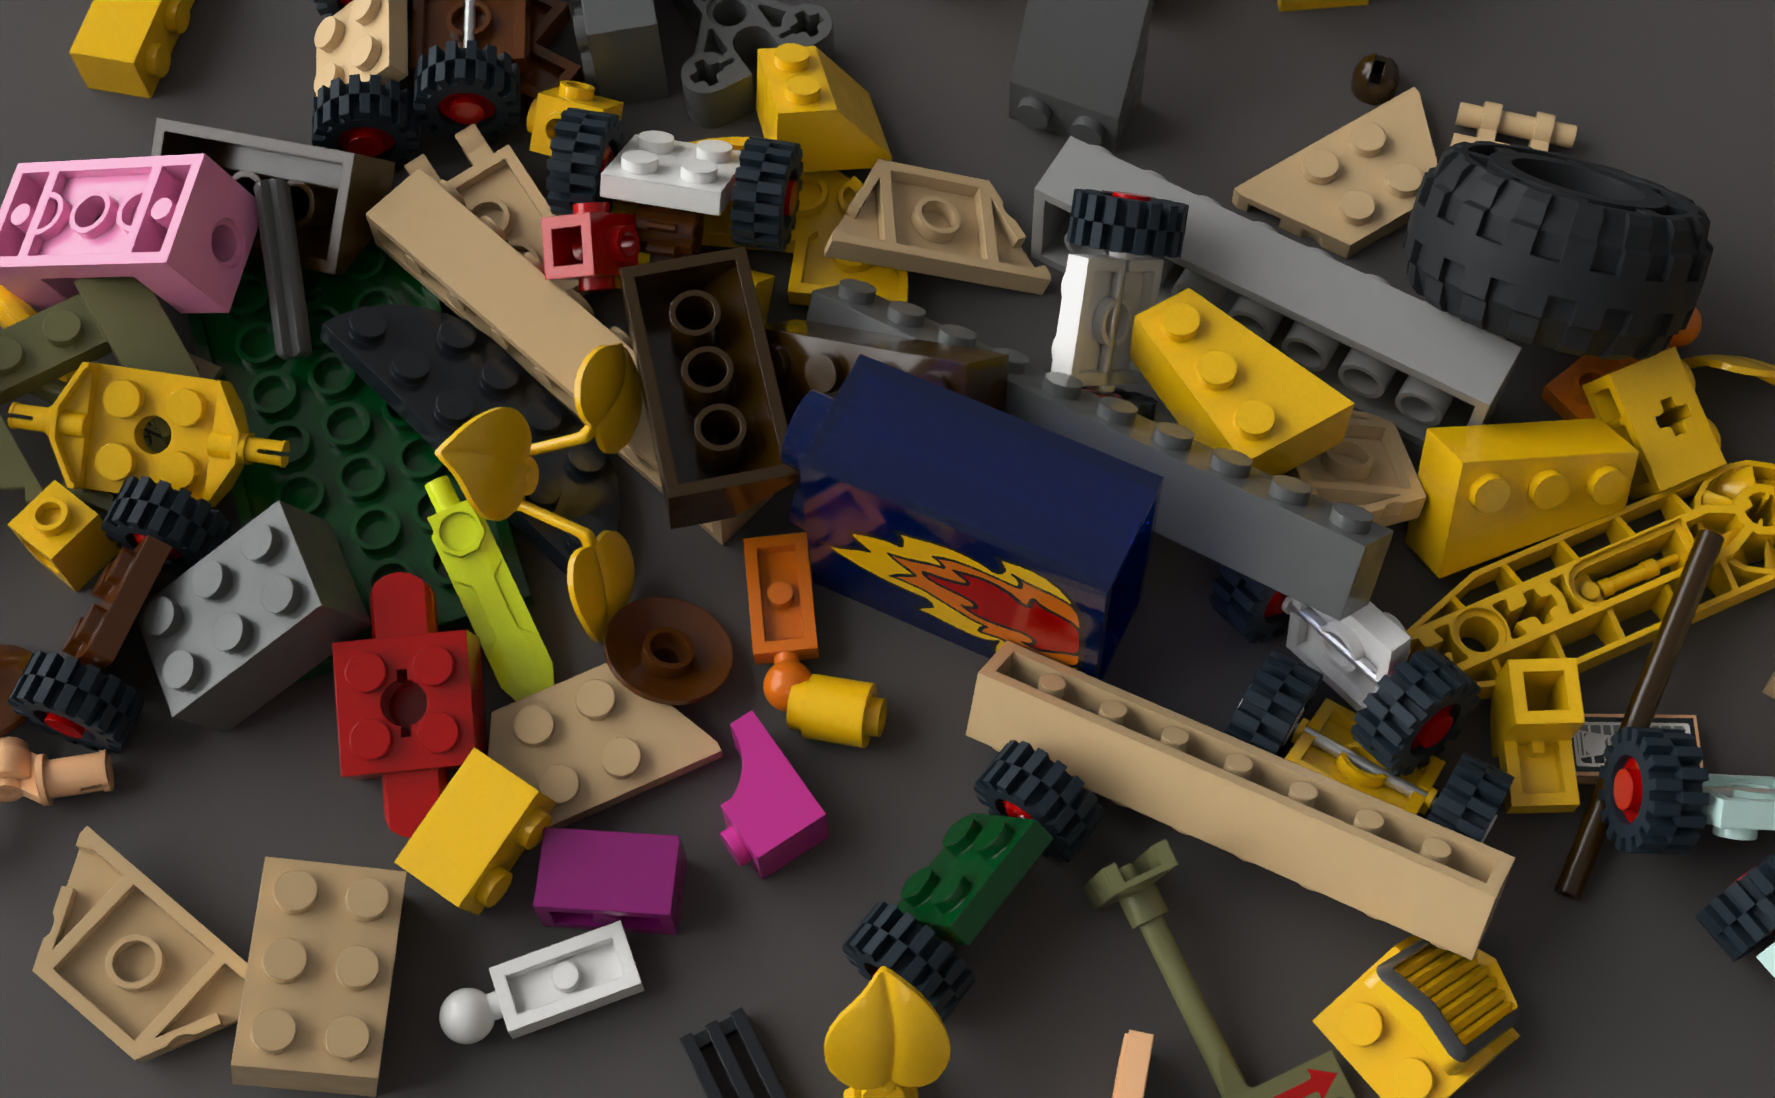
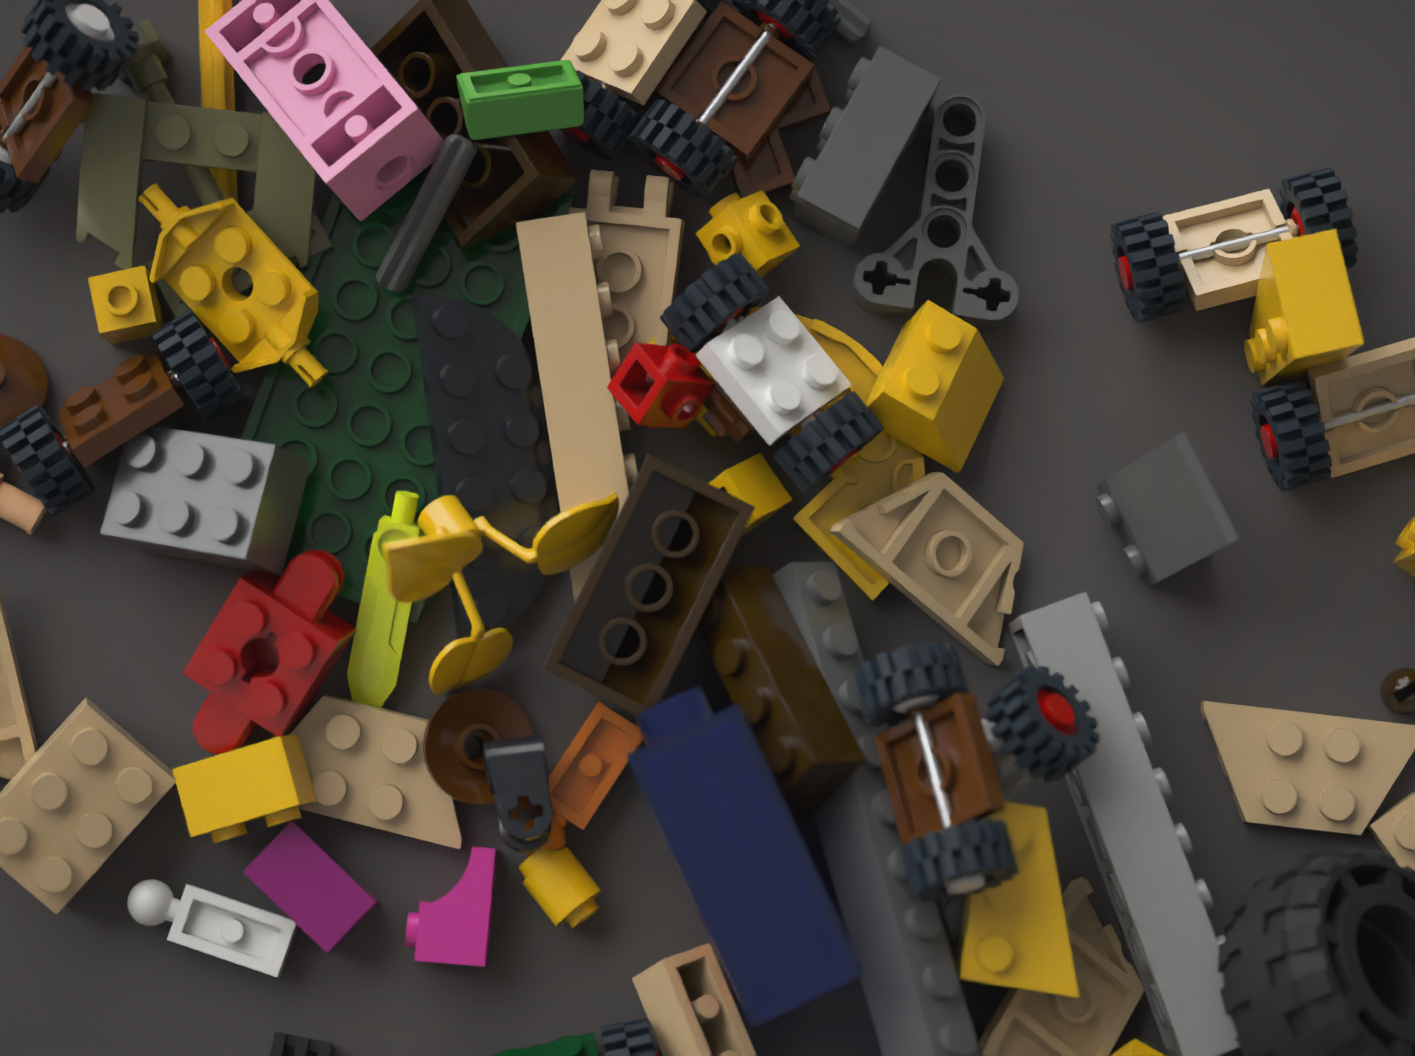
camera: 30 degrees right, 20 degrees up
(298, 118) = (521, 99): none -> bright green slope
(734, 645) = (519, 783): none -> black piece
(1077, 311) = (937, 771): none -> plate

